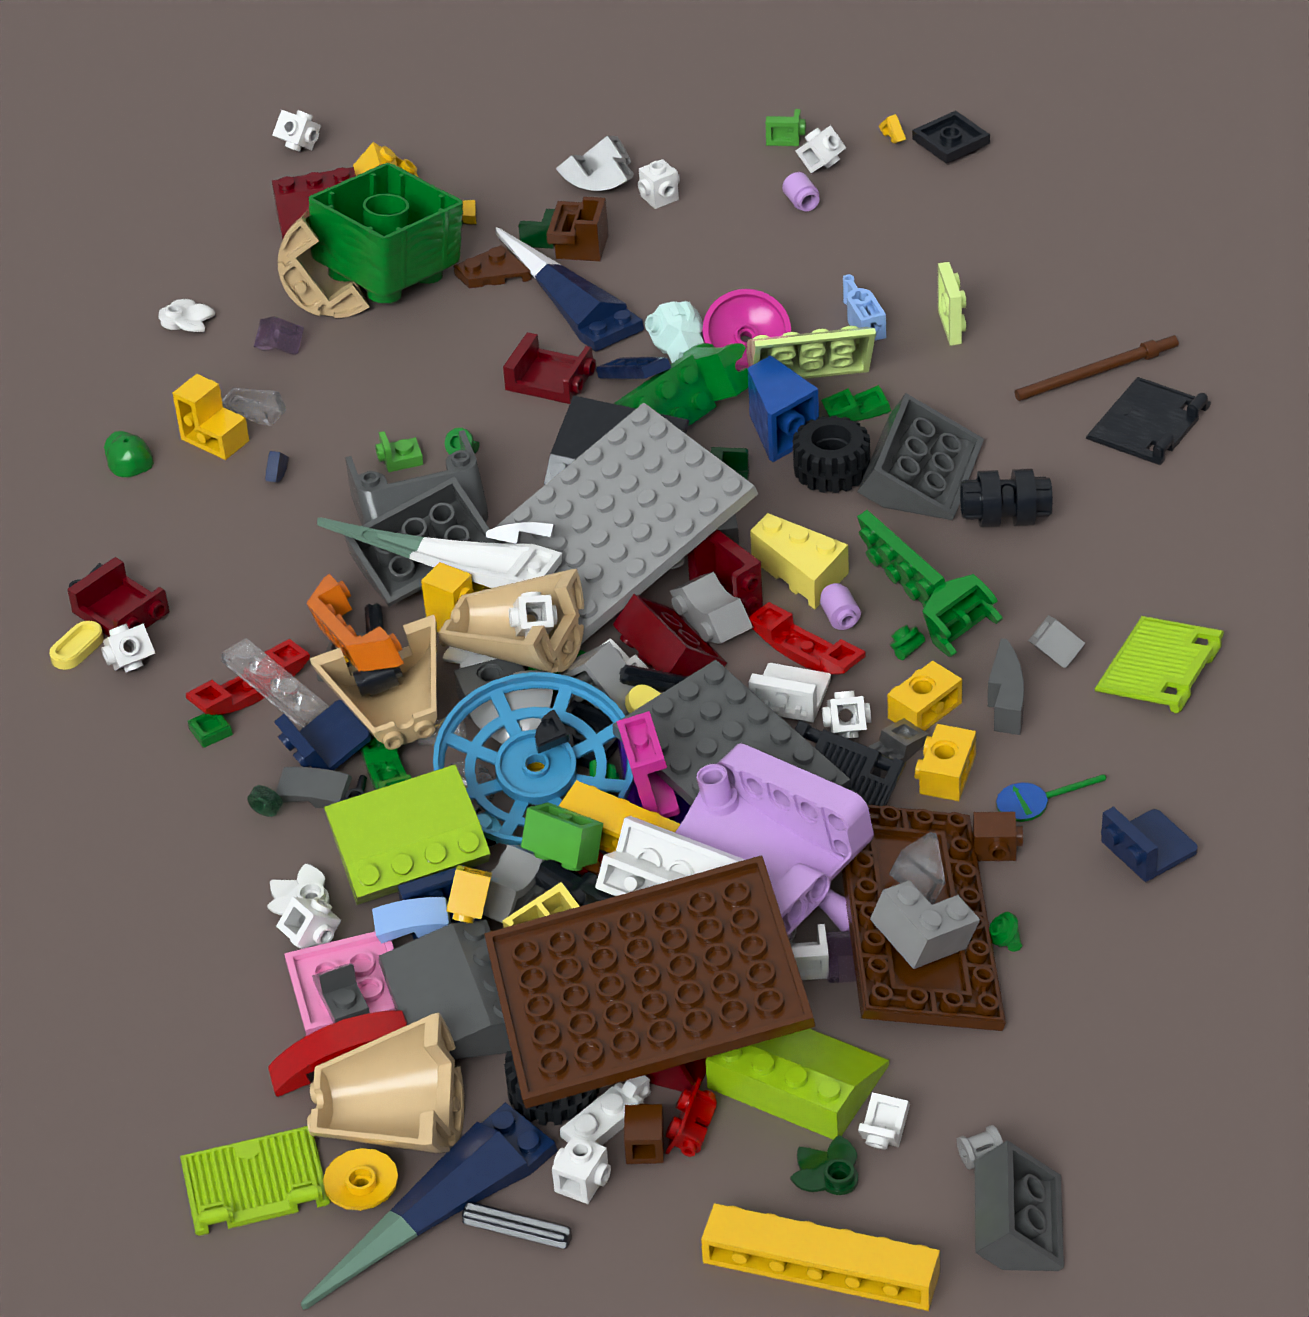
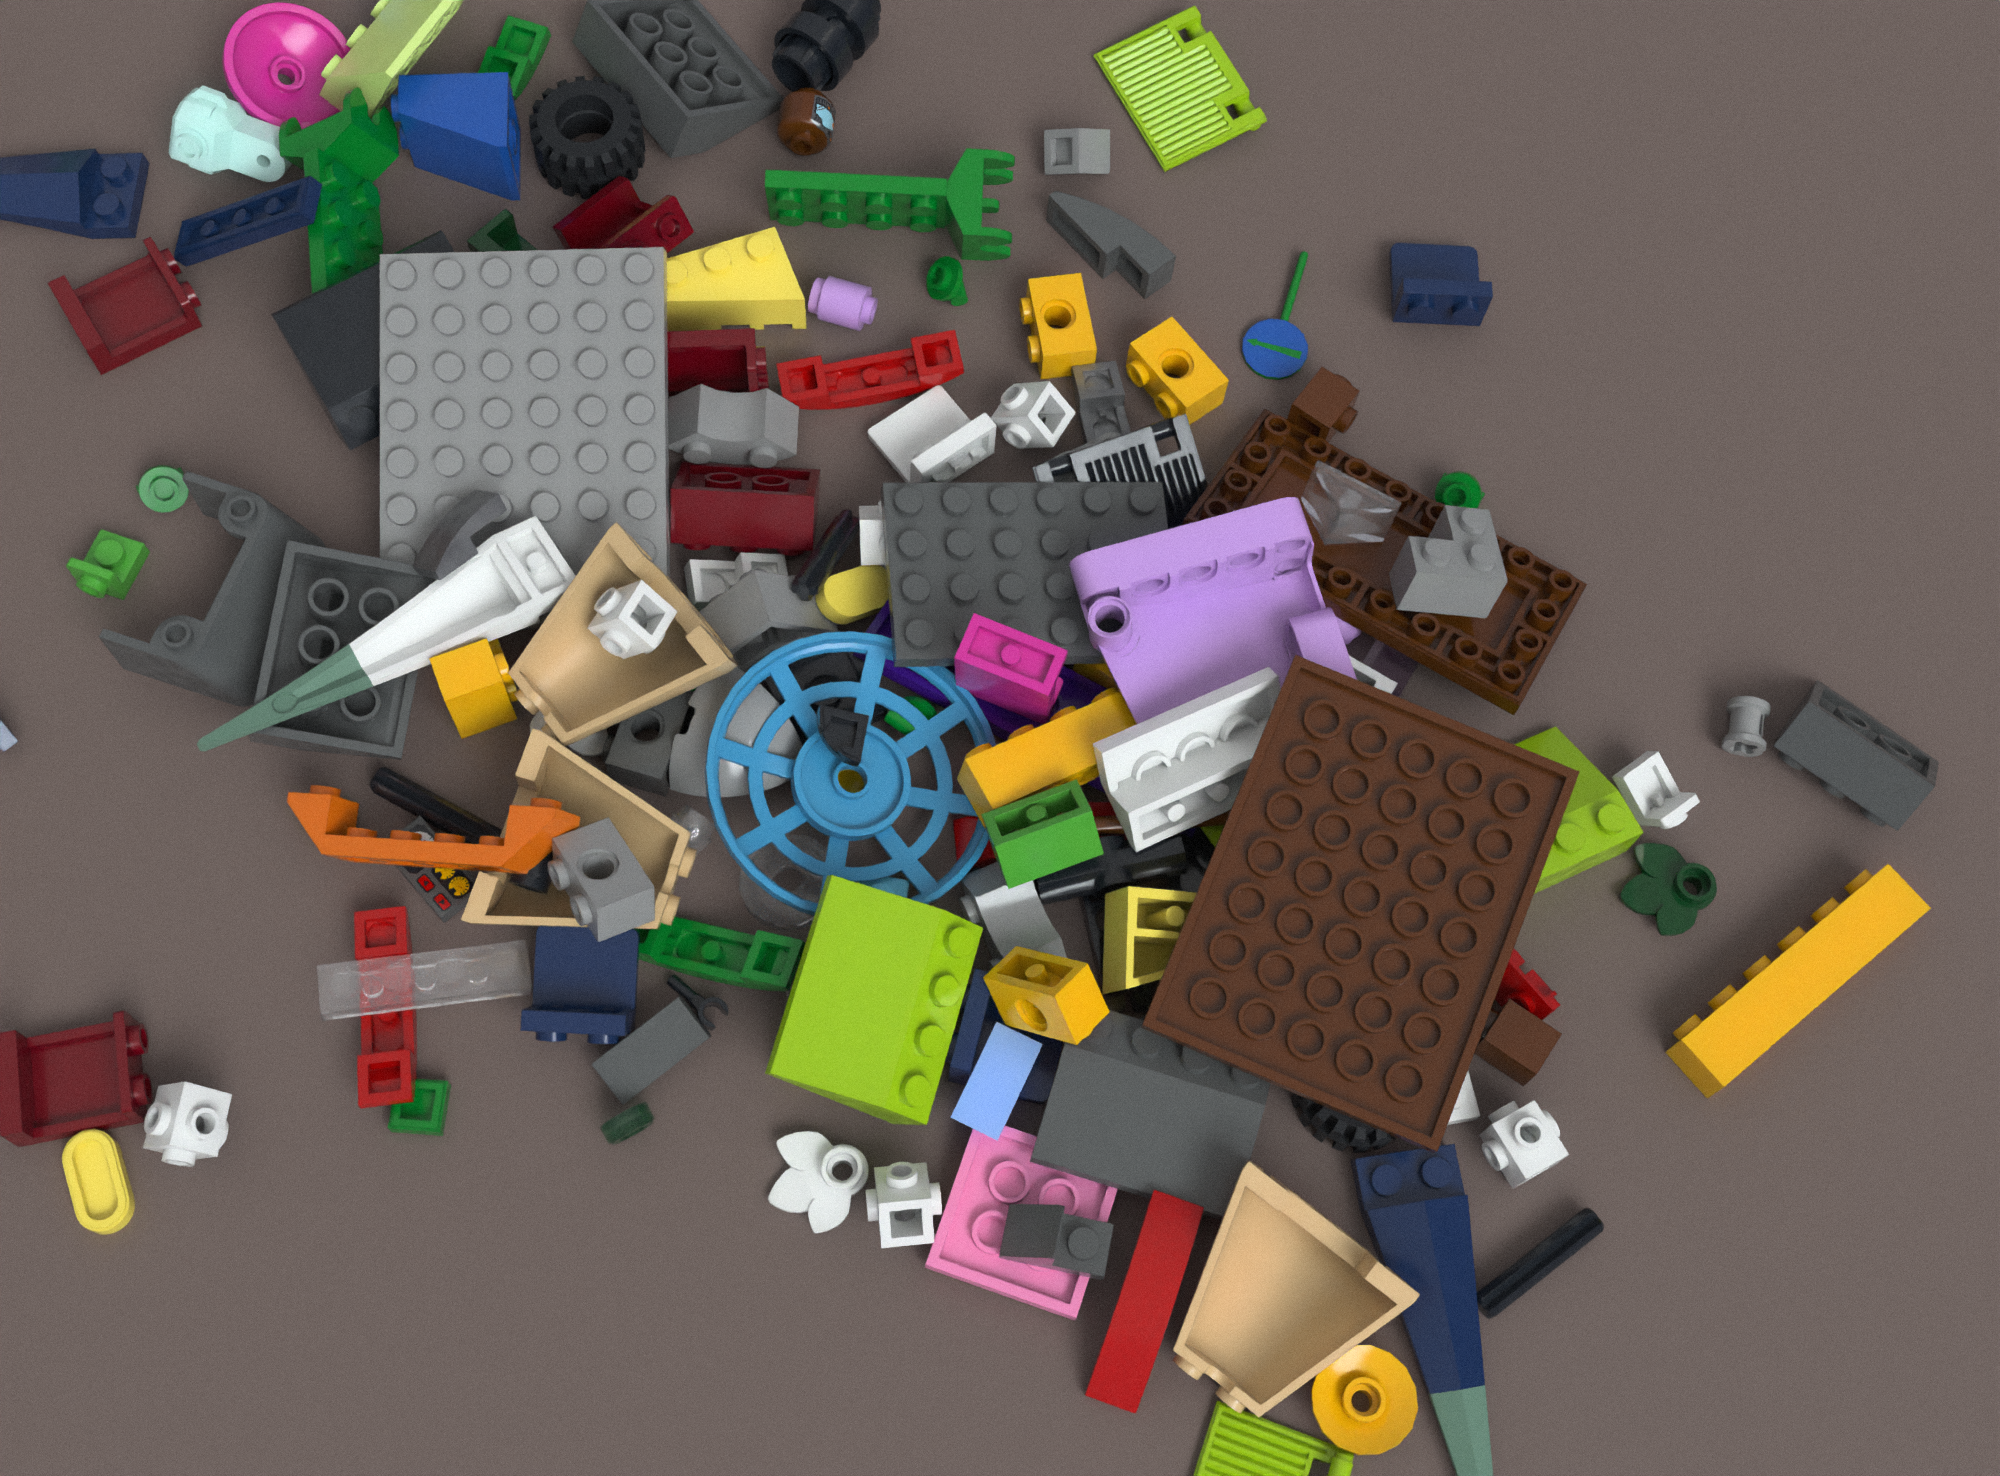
camera: 65 degrees left, 25 degrees up
(377, 692) = (602, 880): none -> light grey brick
(784, 494) = (620, 220): none -> dark red panel
(943, 527) = (806, 119): none -> reddish brown head

